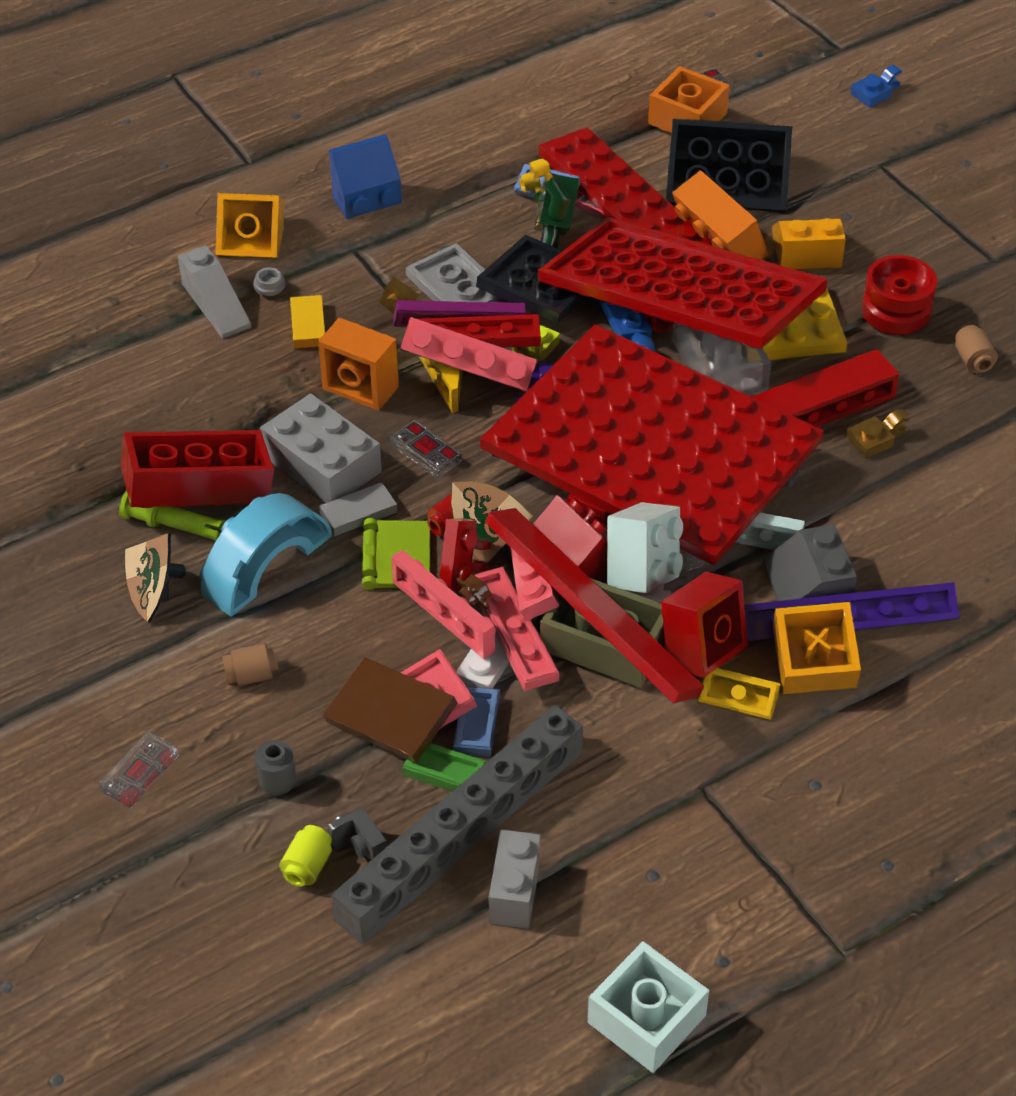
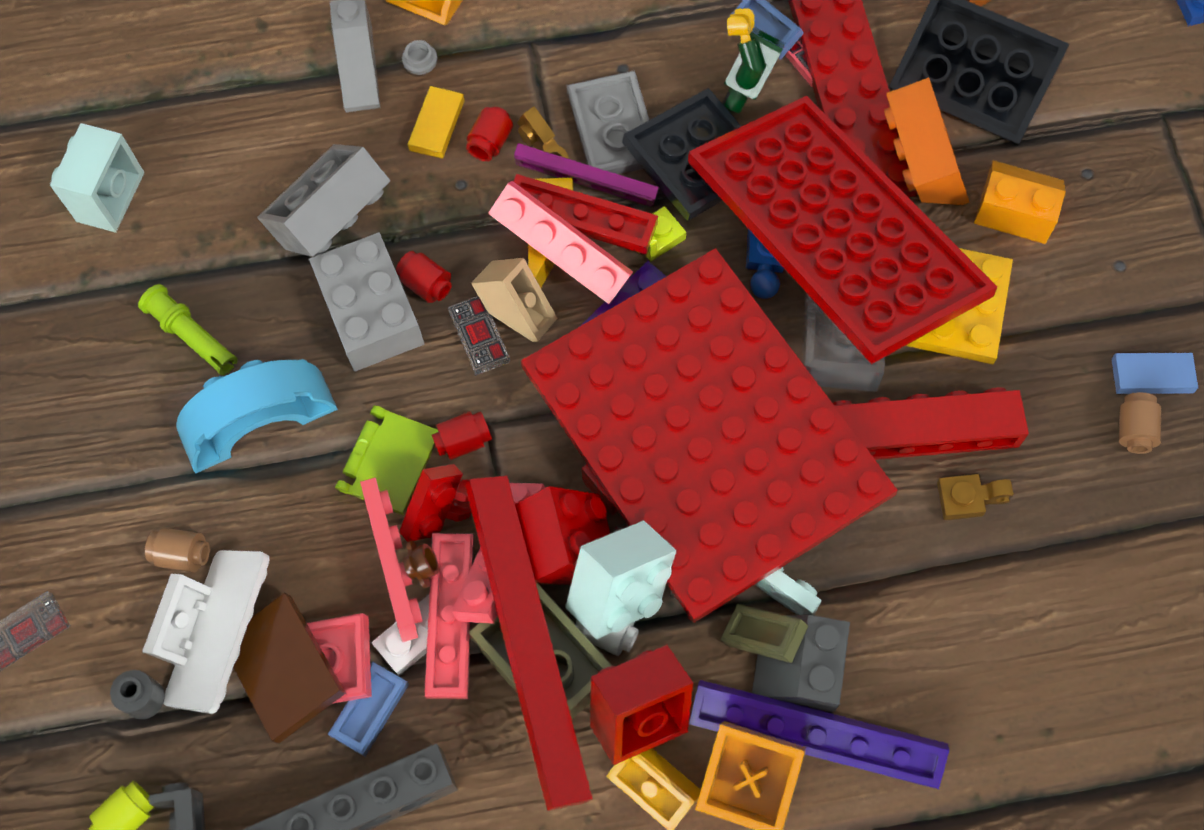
camera: 25 degrees right, 20 degrees up
(35, 429) = (97, 177): none -> light aqua brick
(149, 573) = (133, 402): shield -> none
(195, 468) = (220, 289): red brick -> none
(250, 384) = (324, 200): none -> light grey brick
(312, 702) = (204, 626): none -> white bracket
(352, 510) = (375, 386): light grey tile -> none
(358, 363) = (450, 206): orange brick -> none
(361, 308) = (489, 133): none -> red brick
(364, 417) = (424, 276): none -> red brick
(442, 767) = (314, 759): bright green tile -> none
(445, 408) = (515, 297): none -> tan slope
(474, 502) = (484, 454): shield -> none
(771, 558) = (764, 633): none -> olive tile
(899, 294) = (1085, 317): red wheel -> none
(980, 313) = (1154, 373): none -> medium blue tile

